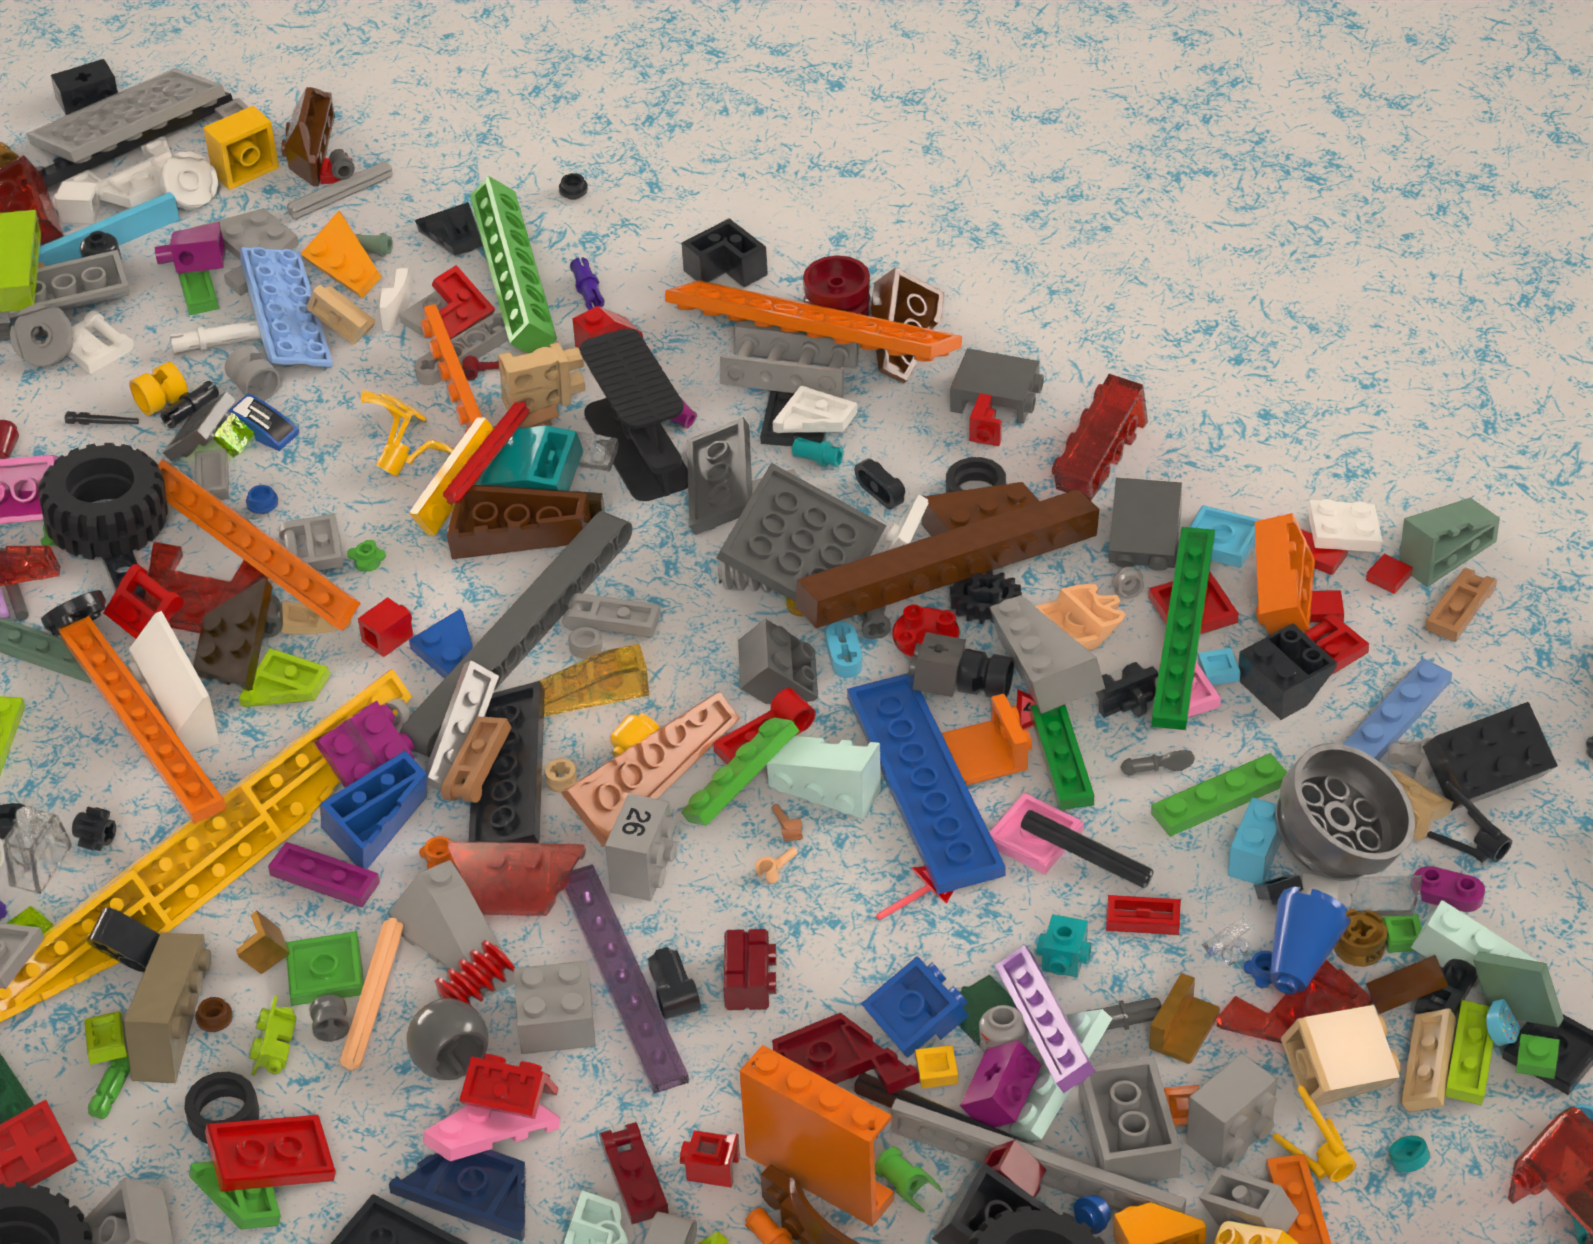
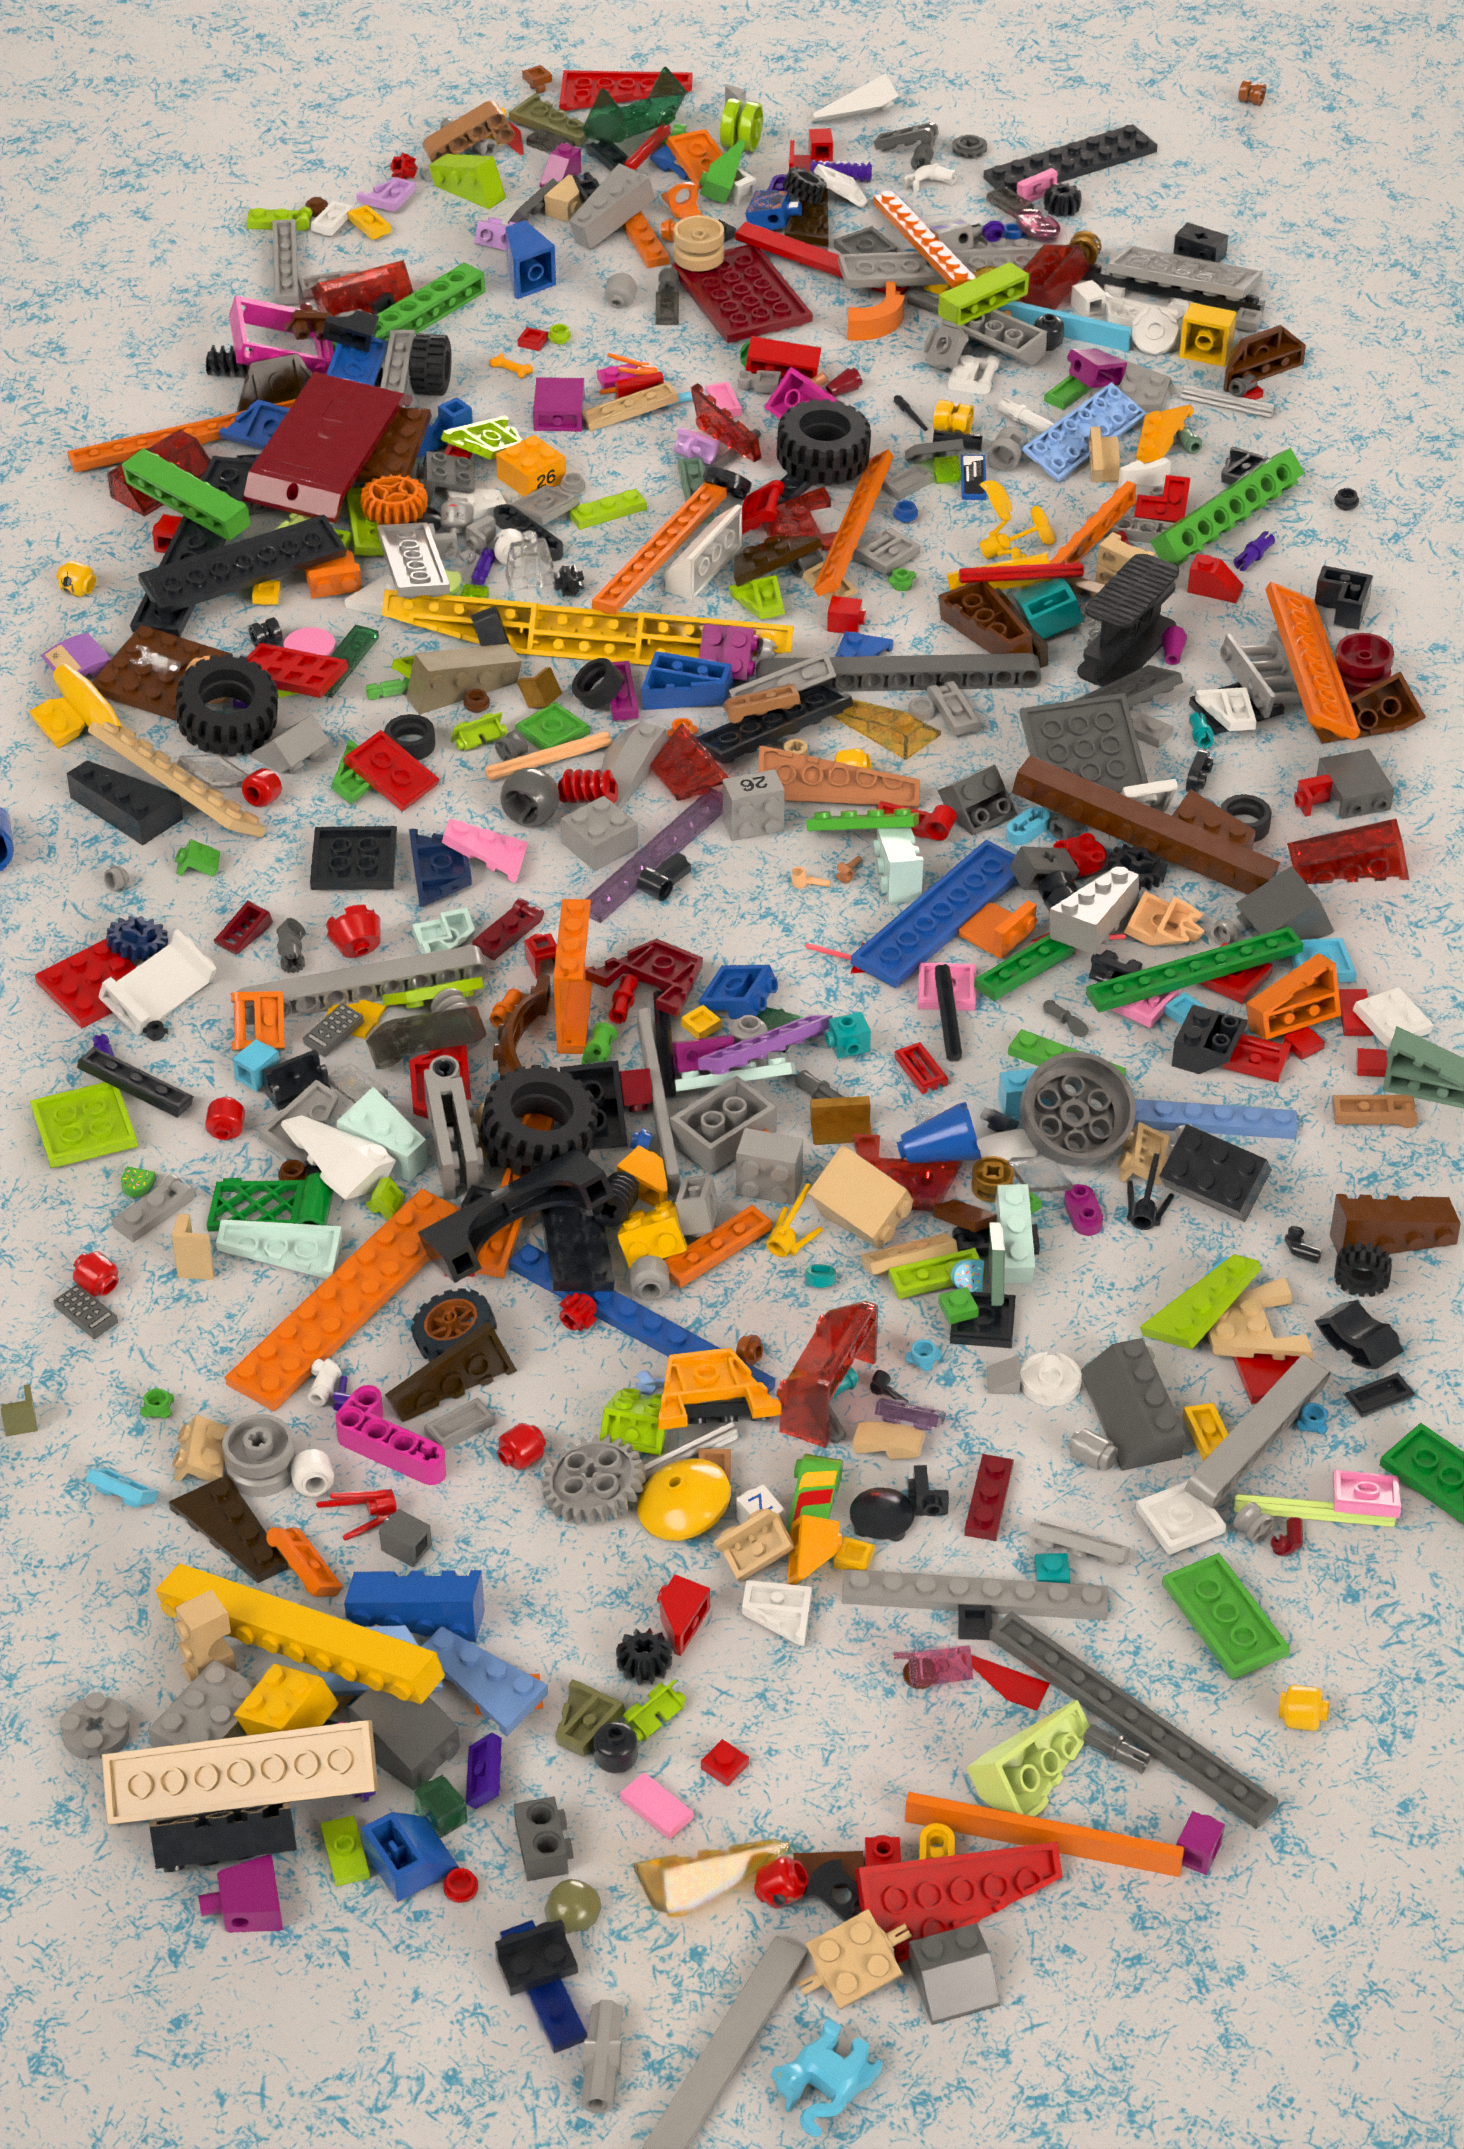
camera: 55 degrees right, 0 degrees up
(280, 885) = (603, 692): none -> black tyre
(505, 1087) = (509, 833): red bracket -> none
(748, 969) = (704, 902): dark red brick -> none

